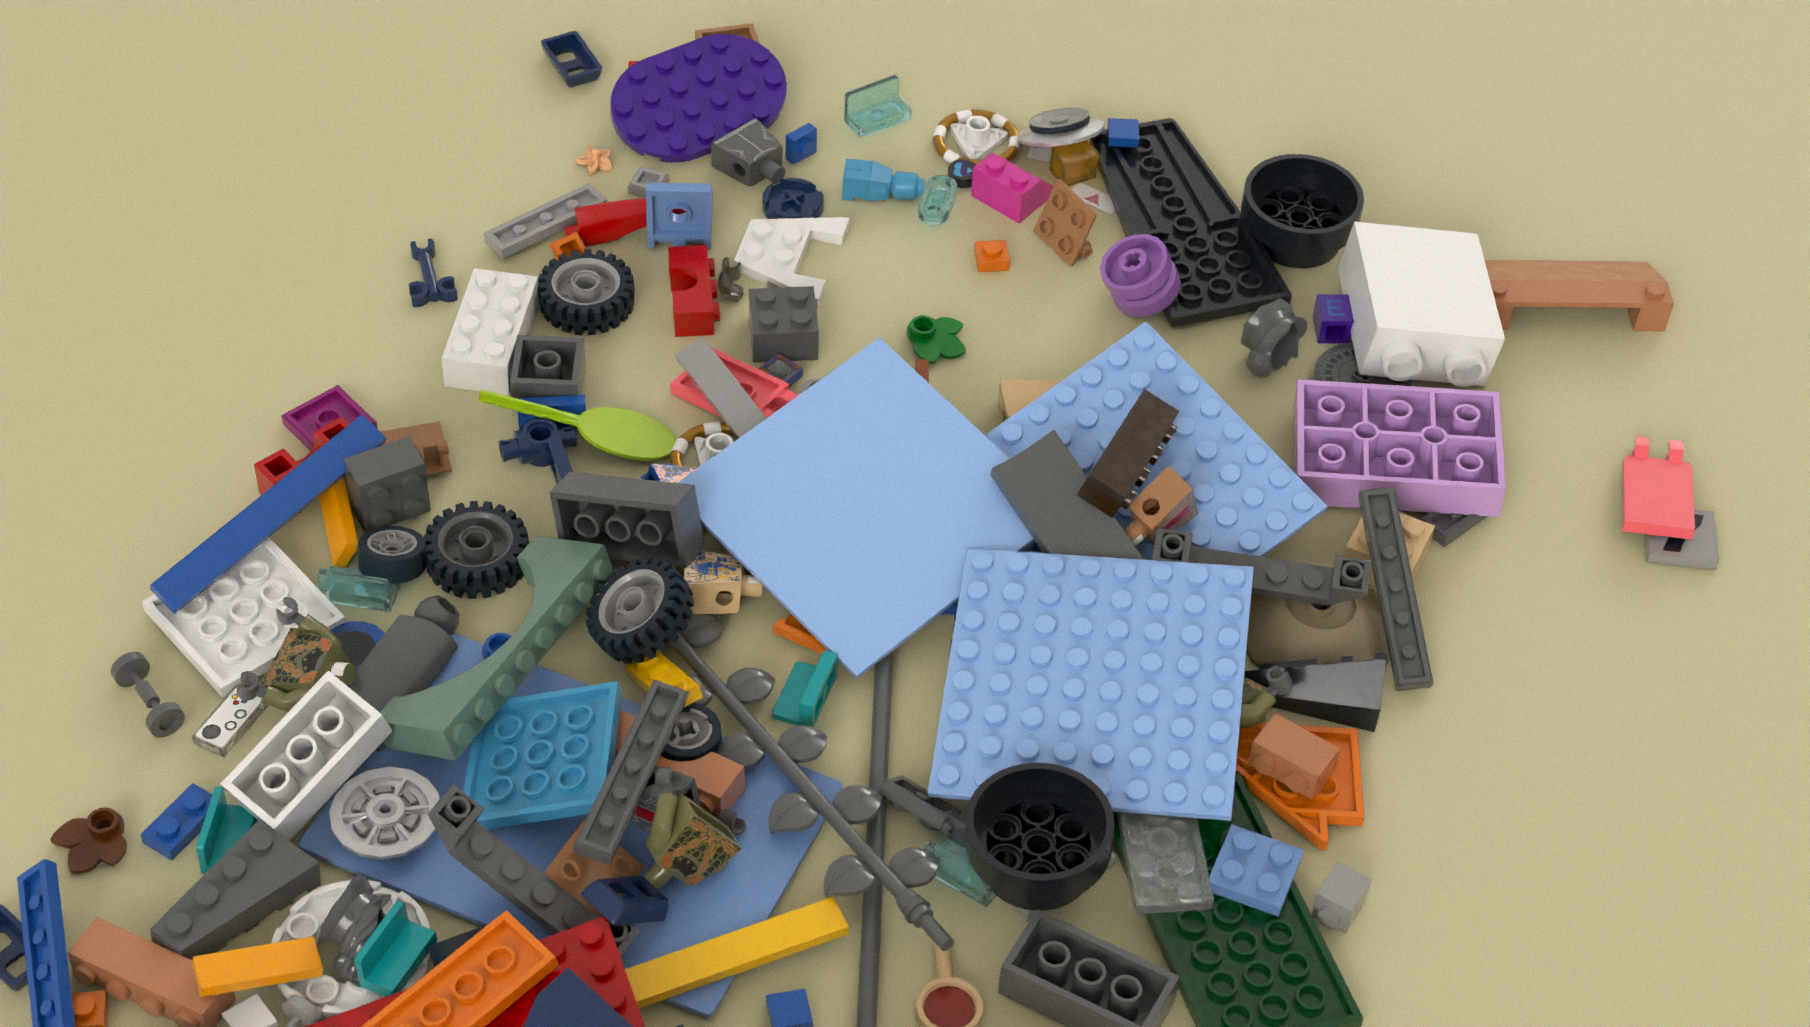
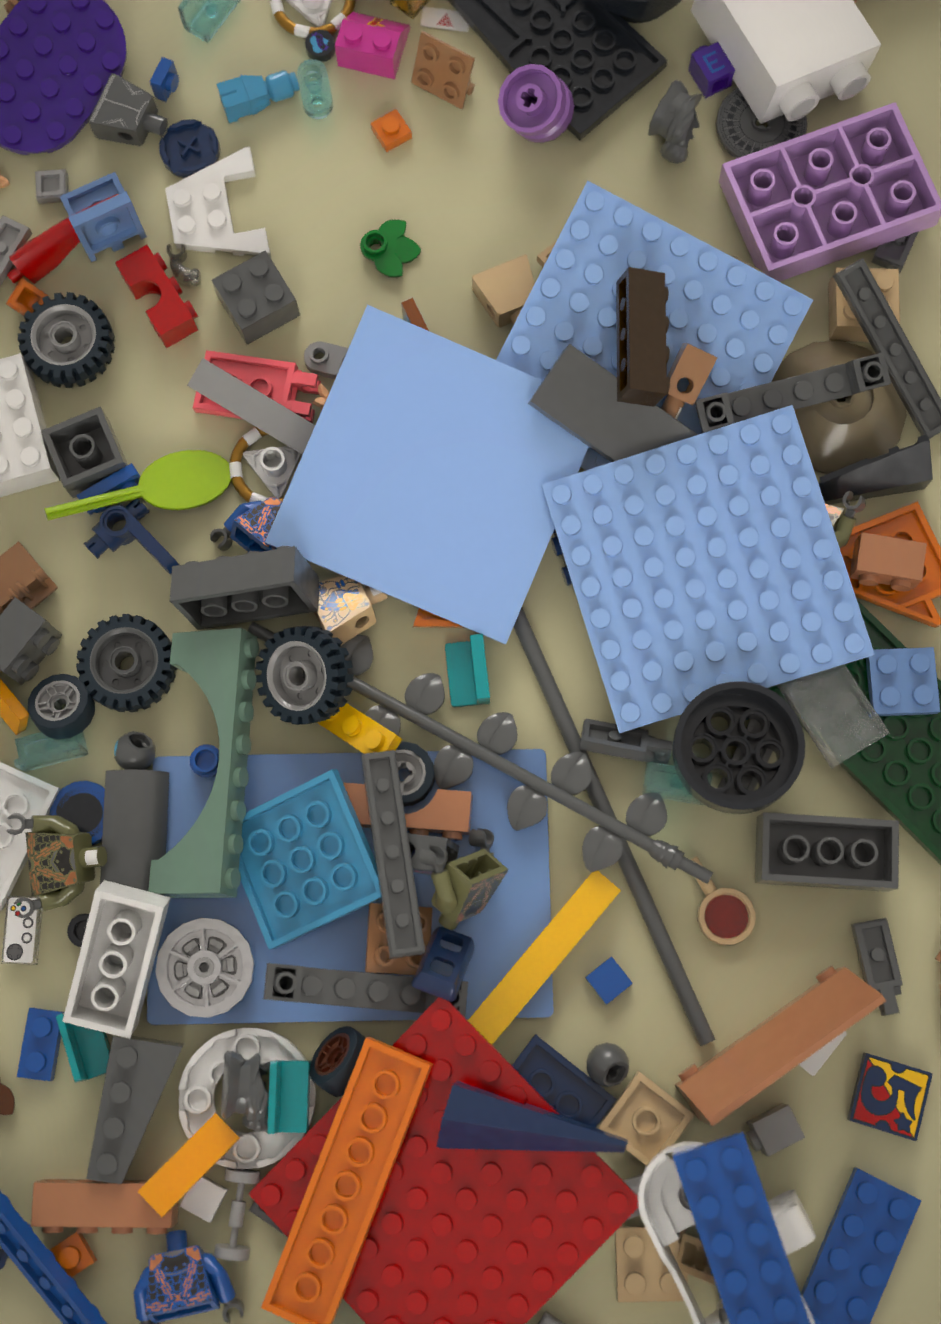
camera: 20 degrees left, 30 degrees up
(783, 369) = (277, 346): tile -> none

